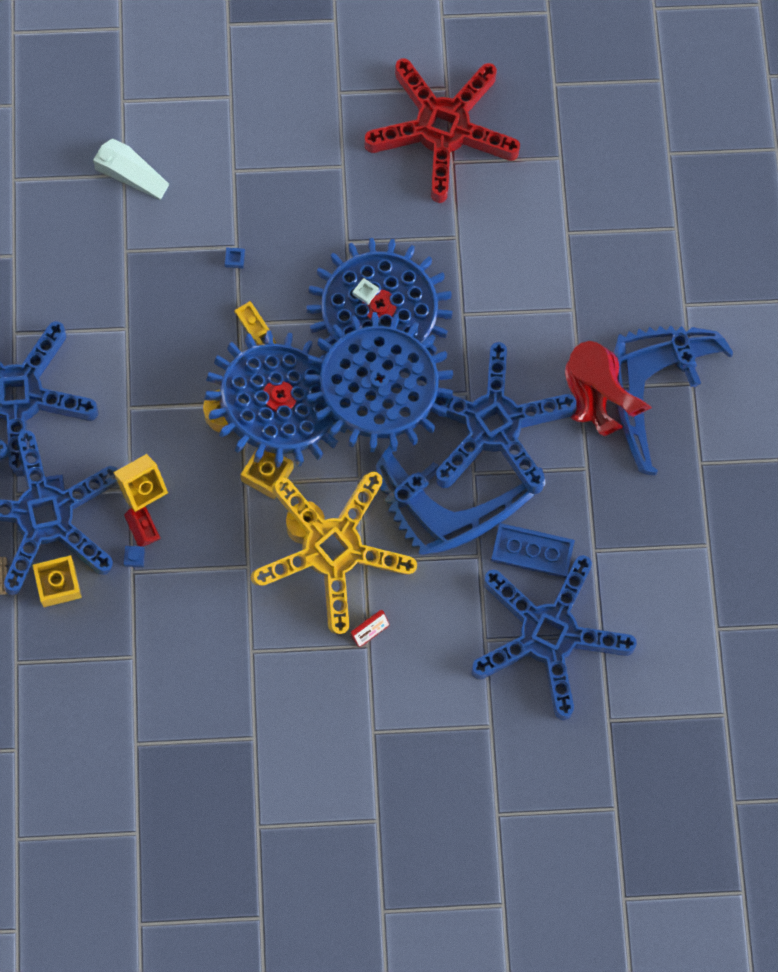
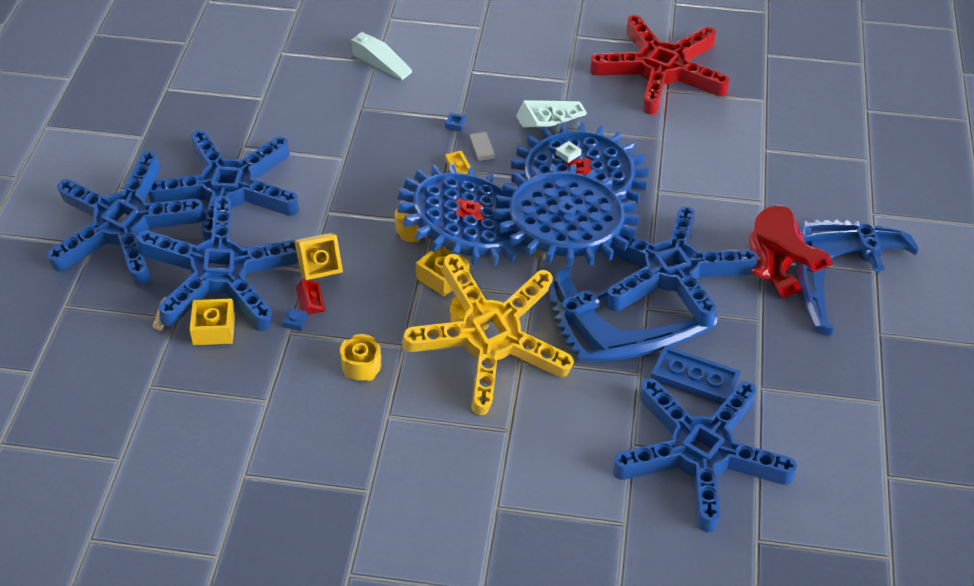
camera: 15 degrees right, 25 degrees down
(220, 603) = (360, 357): none -> yellow brick
(270, 286) = (482, 146): none -> light grey tile
(334, 232) = (548, 112): none -> light aqua wedge
(370, 628) = (513, 412): slope -> none

